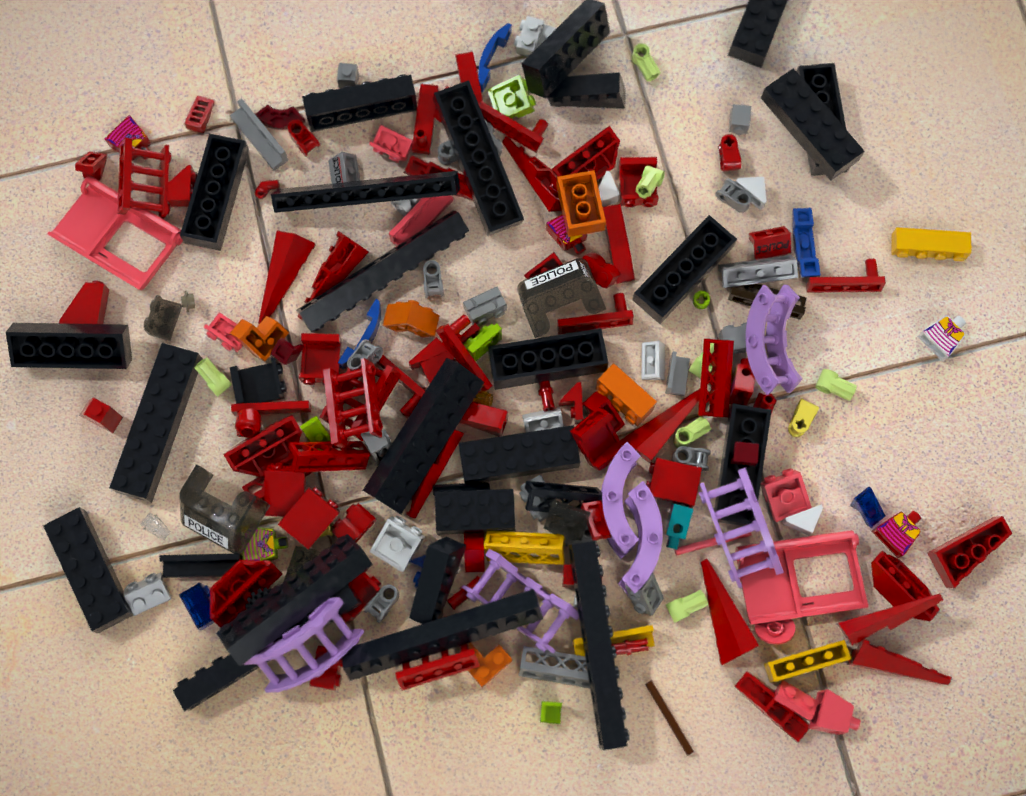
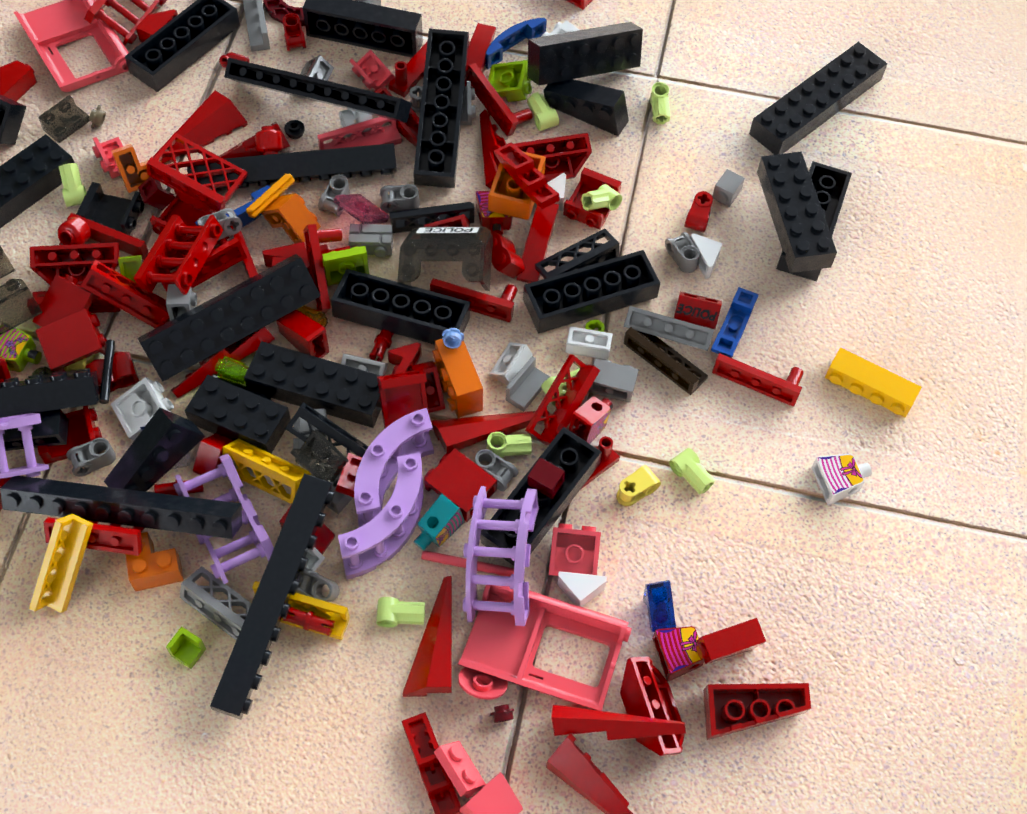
camera: 25 degrees right, 15 degrees down
(310, 334) = (184, 183): none -> red fence
(354, 259) = (269, 141): none -> red head
(354, 528) = (107, 371): none -> black bar
(359, 236) = (294, 129): none -> black plate
(384, 308) = (270, 195): none -> light orange axle
(428, 700) = (61, 563): none -> yellow fence
(449, 477) = (231, 370): none -> clear neon green brick
(463, 283) = (361, 208): none -> clear pink tile
(483, 257) = (401, 198): none -> light grey piece
(520, 259) = (409, 219): none -> black fence
(558, 120) = (543, 114): none -> yellowish green piece
(590, 197) = (526, 176): none -> red slope
(612, 371) = (452, 338): none -> light blue plate
(614, 619) = (312, 583): none -> light grey piece
(647, 597) = (361, 576): light grey bracket -> none
(663, 248) = (598, 253): none -> black fence
(669, 718) = (311, 700): reddish brown bar -> none
(704, 314) = (588, 343): none -> white slope
(780, 309) = (651, 394): lavender fence -> none
(800, 643) = (502, 713): none -> dark red plate
(807, 661) = (497, 733): yellow brick -> none
(934, 511) = (730, 641): none -> red slope

